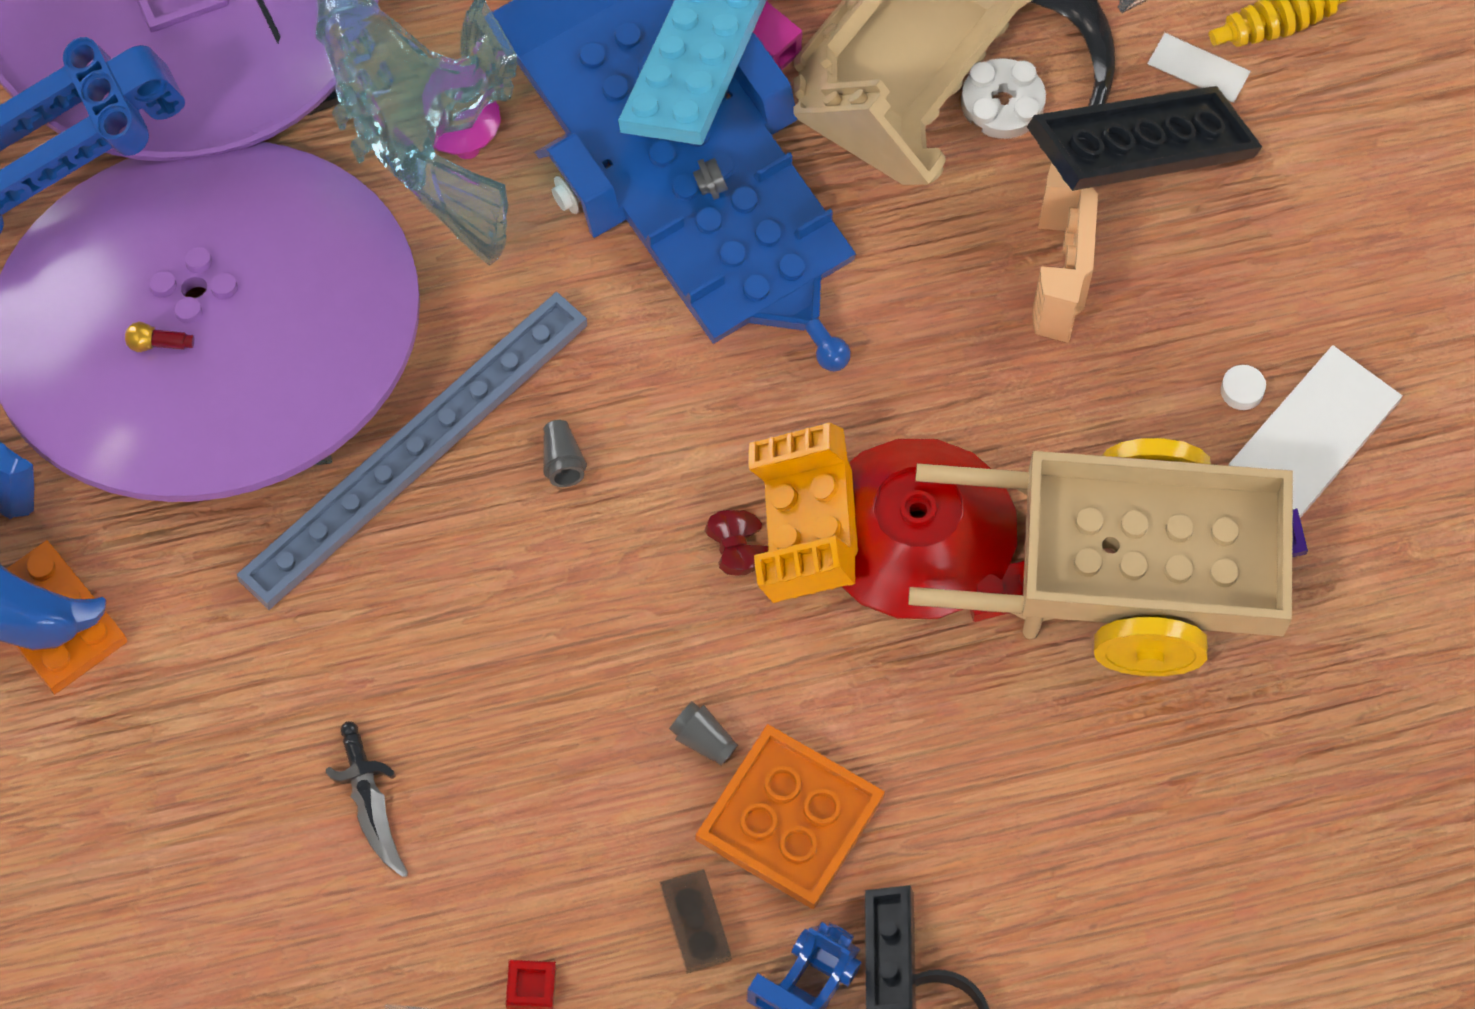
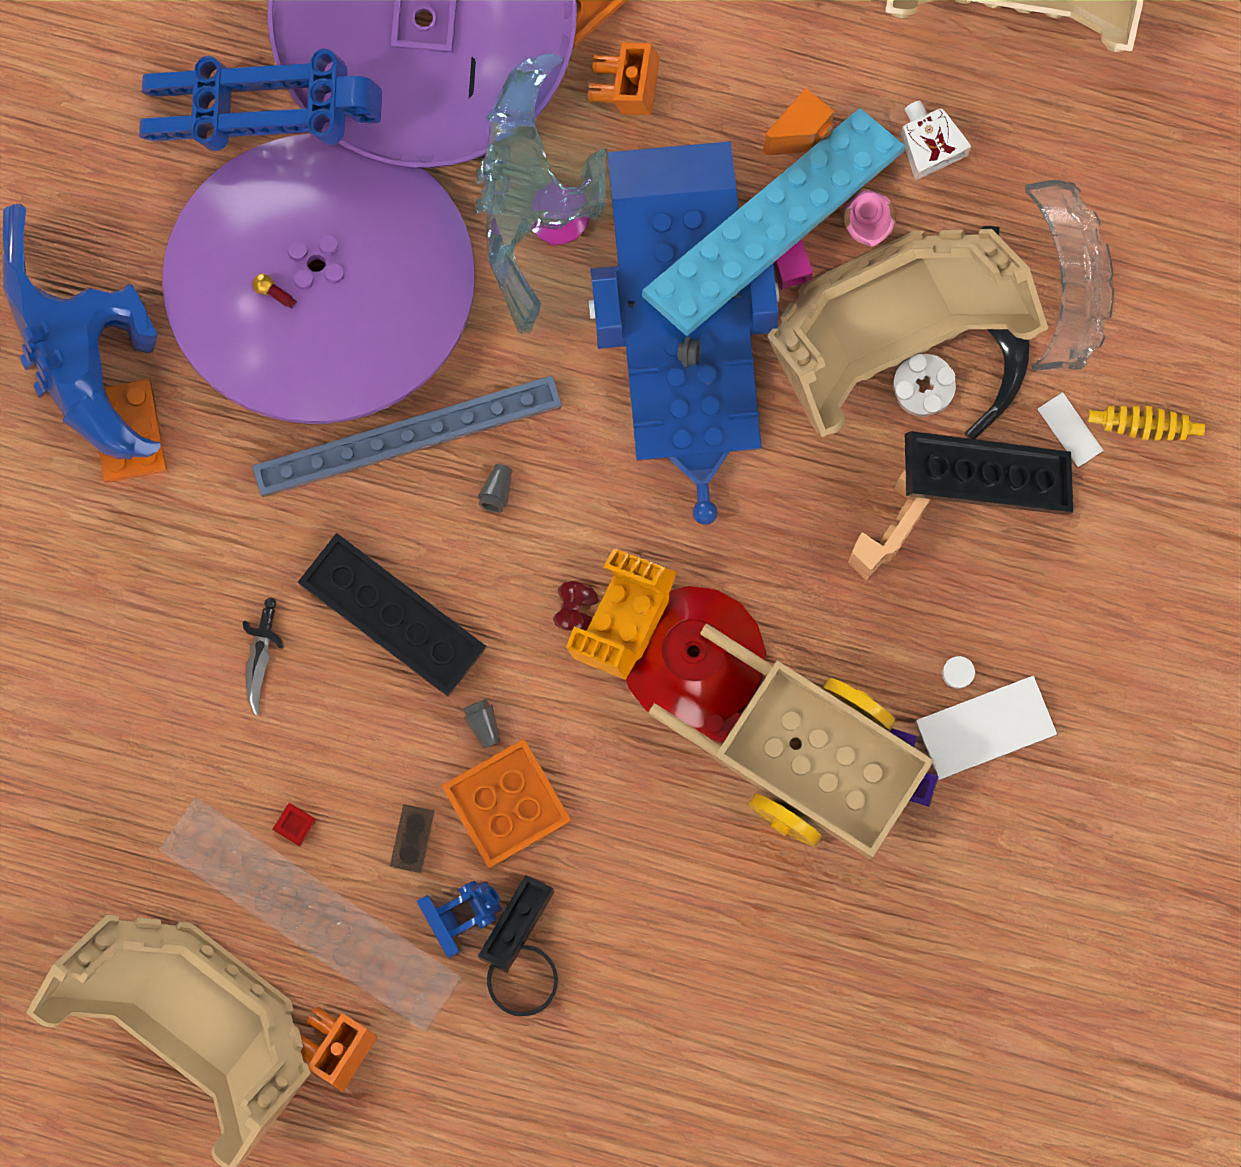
camera: 30 degrees right, 15 degrees up
(514, 664) = (392, 614): none -> black plate

